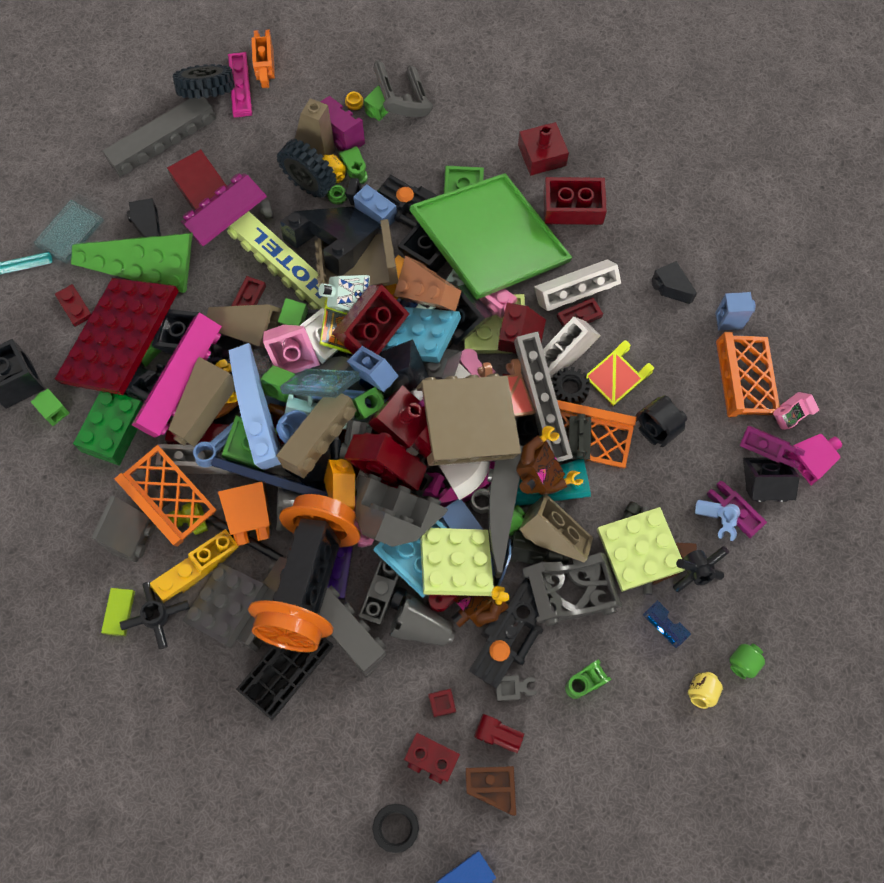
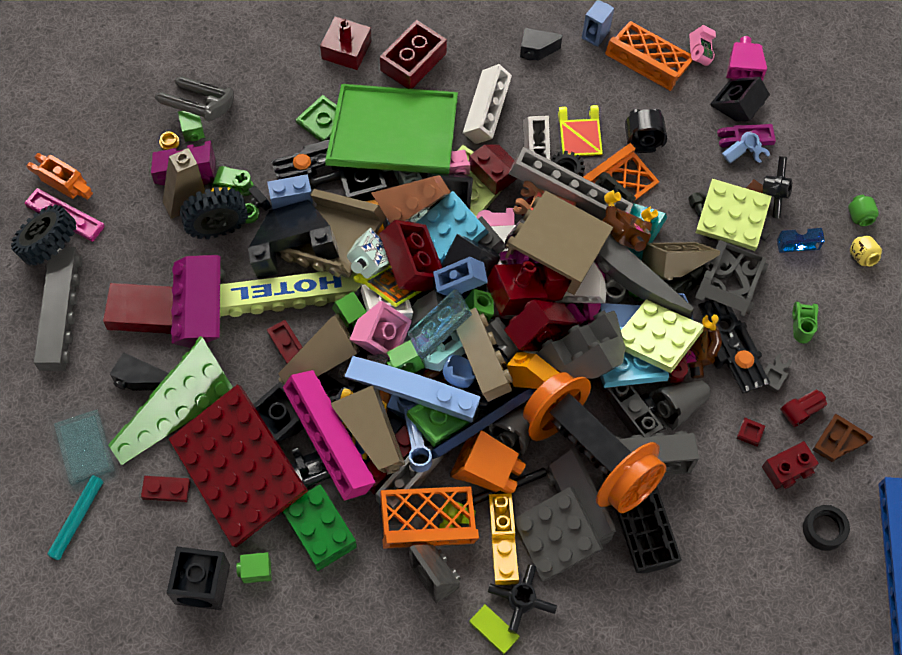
camera: 55 degrees left, 5 degrees down
(587, 311) = (511, 122): dark red plate -> none
(770, 446) = (718, 80): magenta hinge -> none

